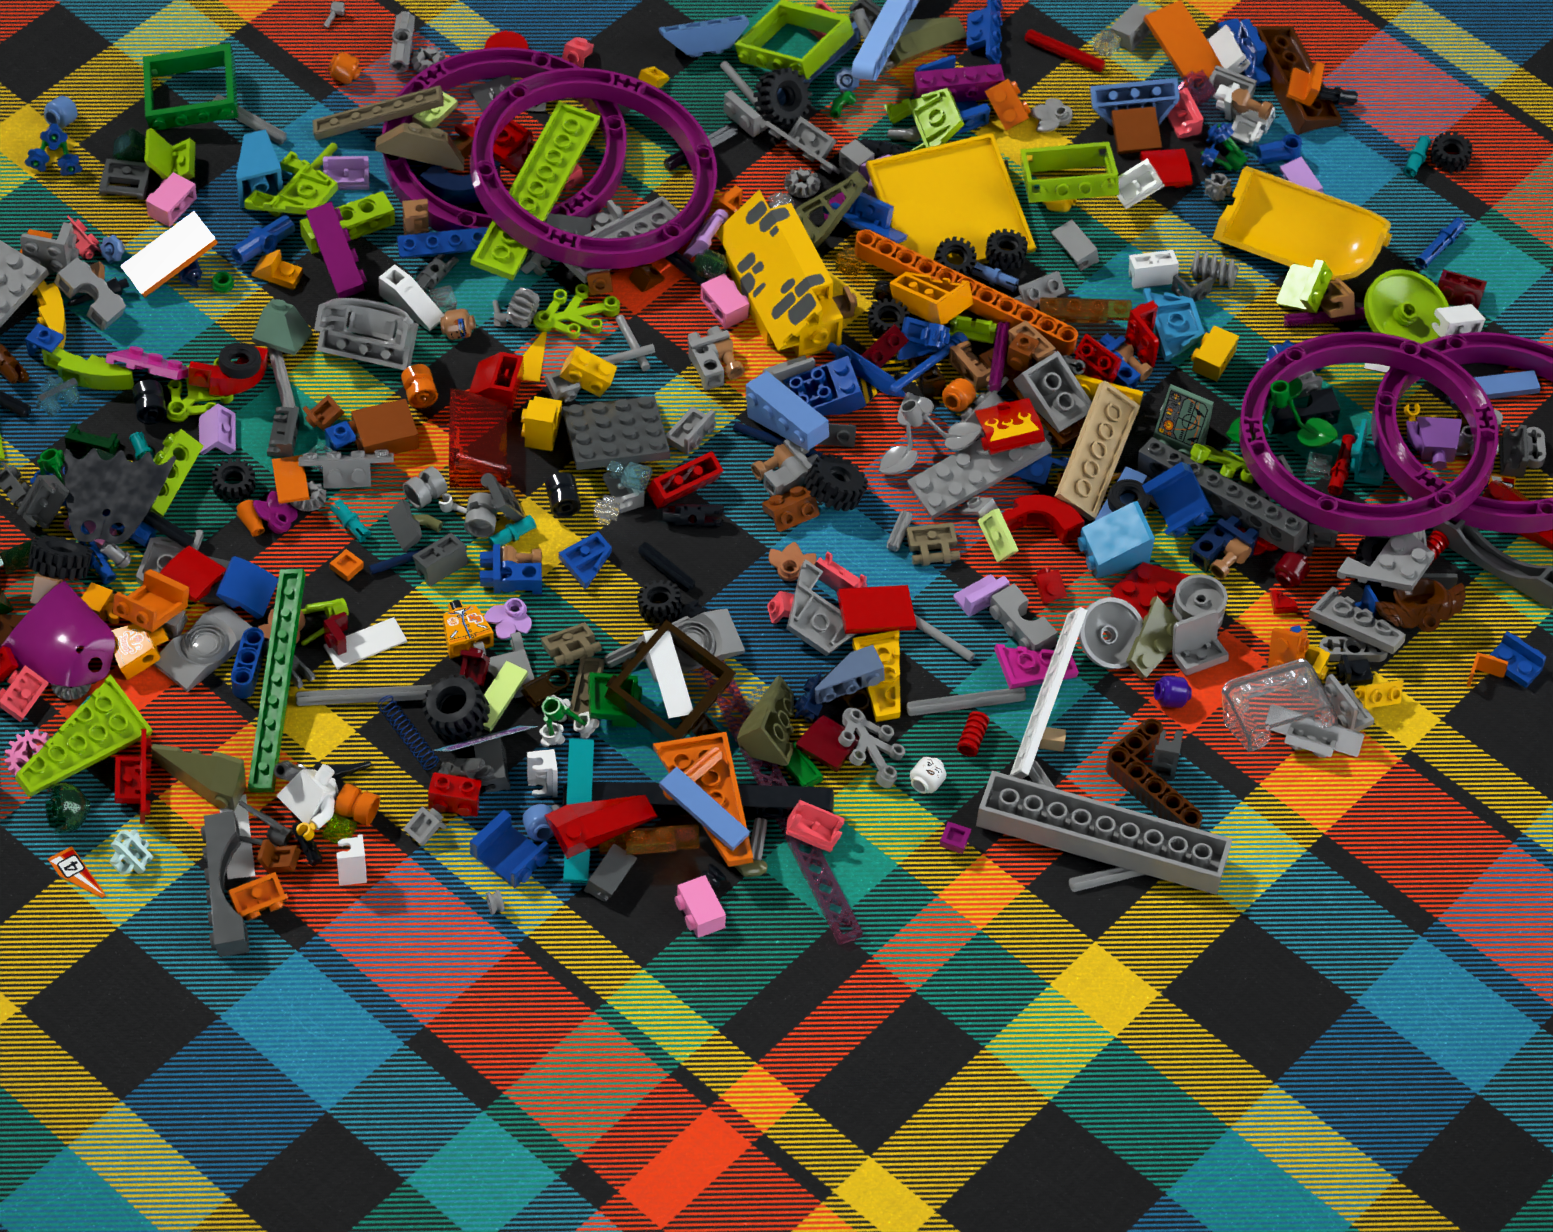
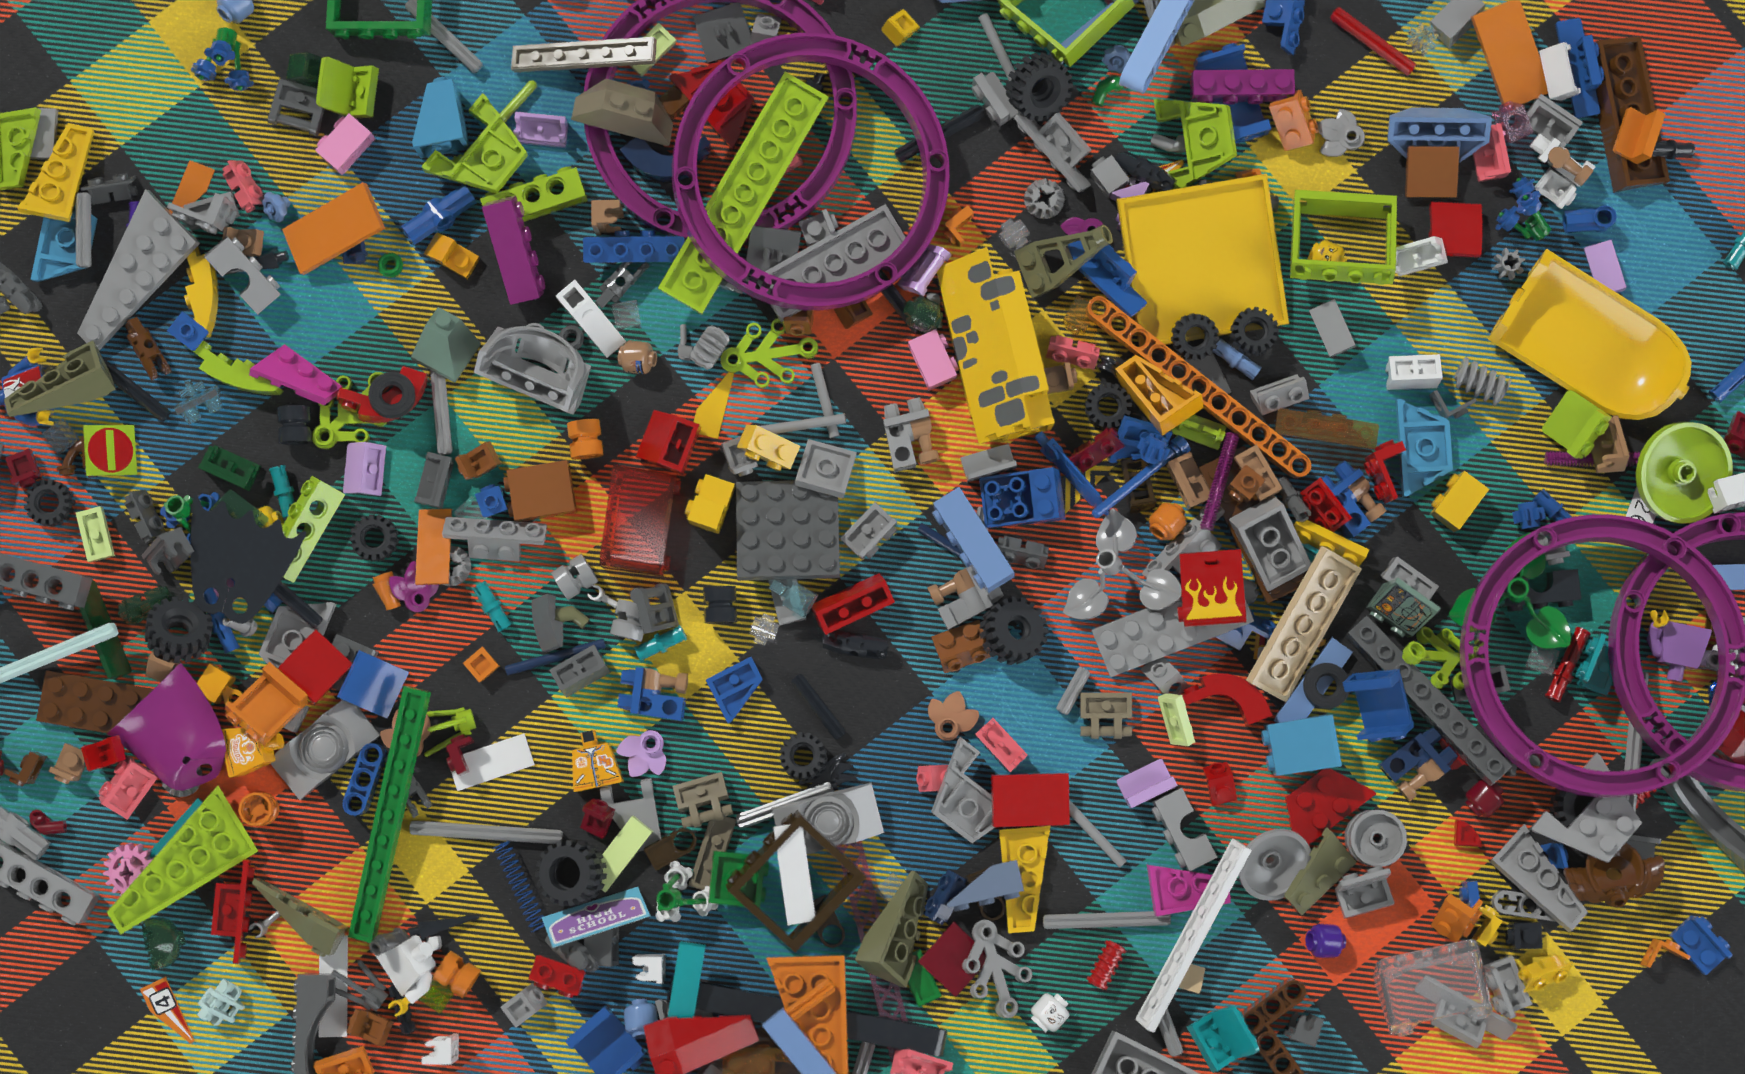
camera: 10 degrees right, 30 degrees up
(150, 693) = (258, 809): none -> orange wheel
(164, 790) = (264, 924): none -> light grey hand
(642, 386) = (825, 468): none -> light grey tile
(858, 285) = (1083, 356): none -> coral hinge
(1097, 770) = (1223, 1037): none -> teal bracket

